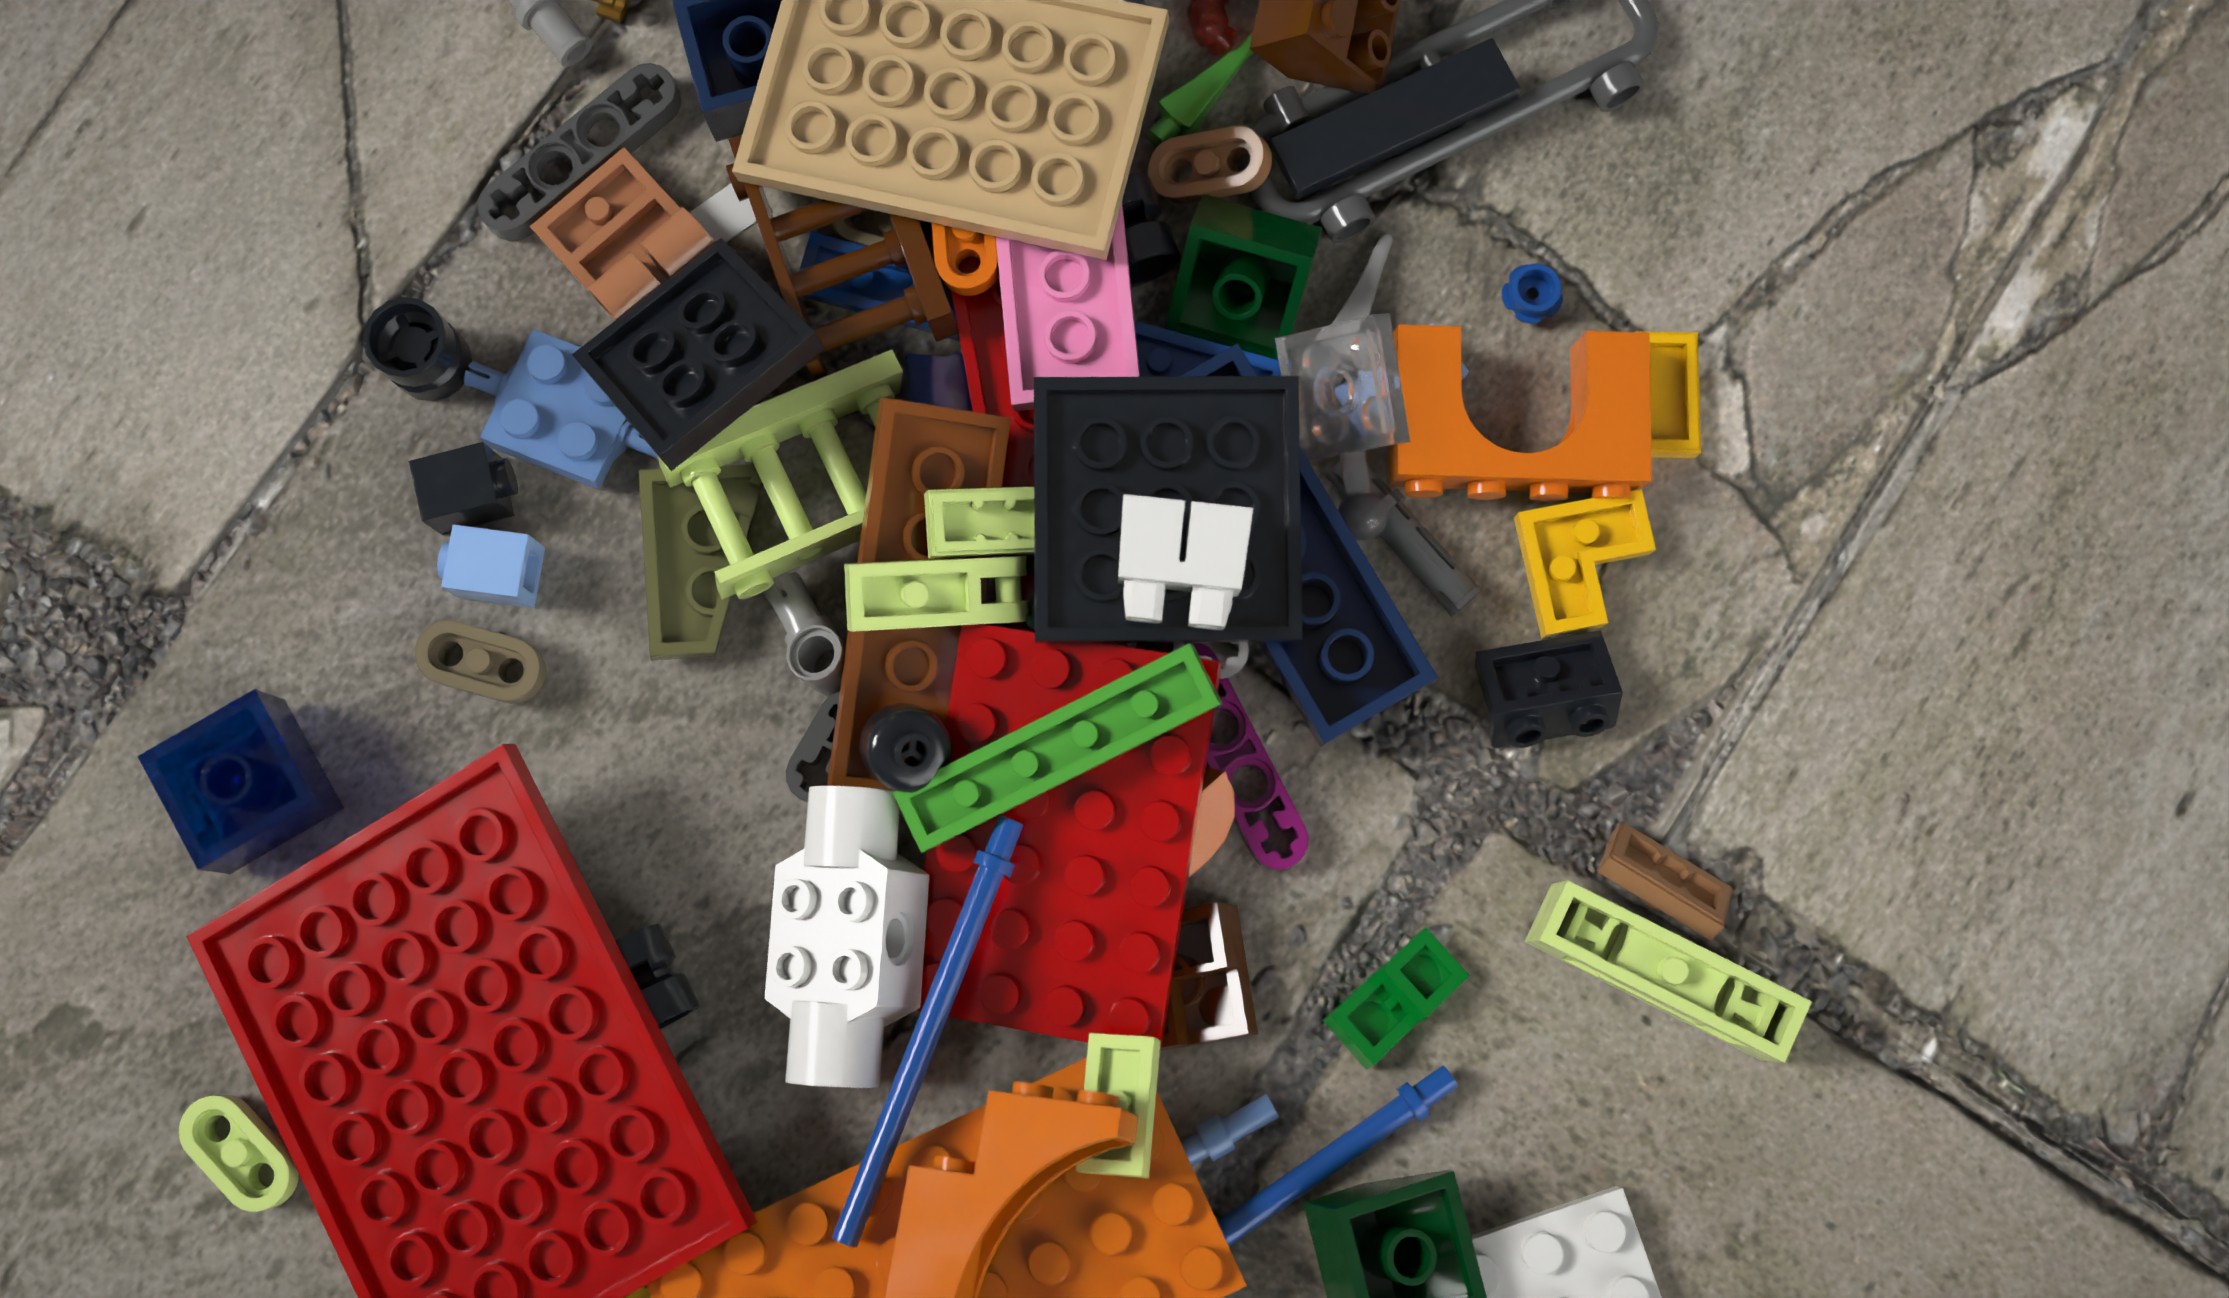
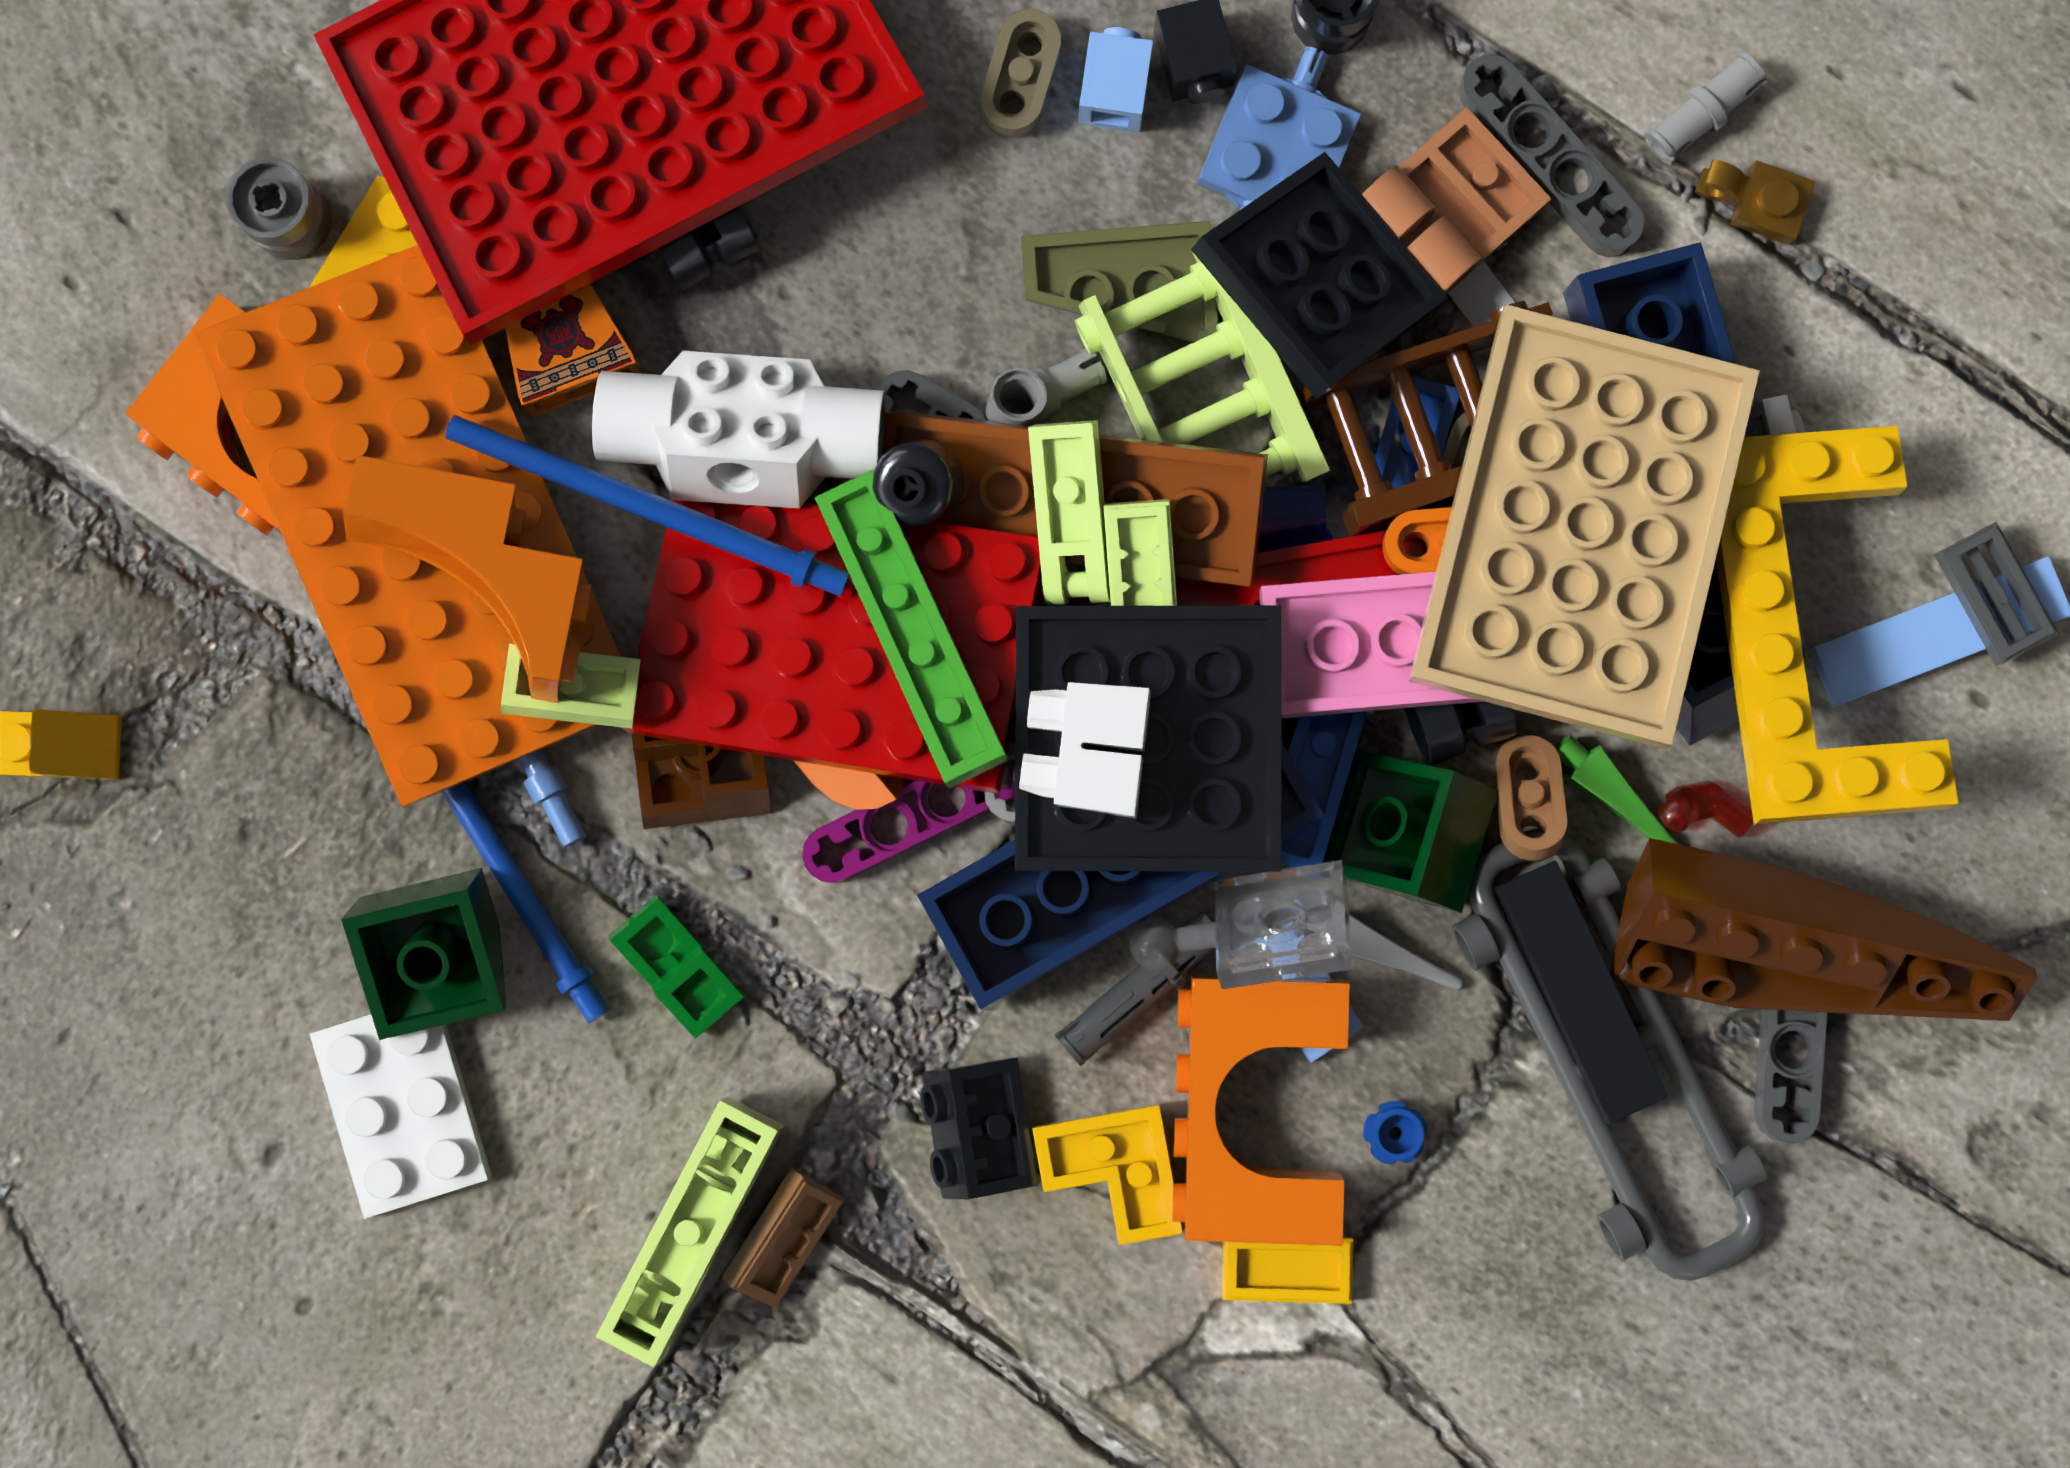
camera: 90 degrees right, 5 degrees up
(763, 1123) = (564, 350): none -> torso

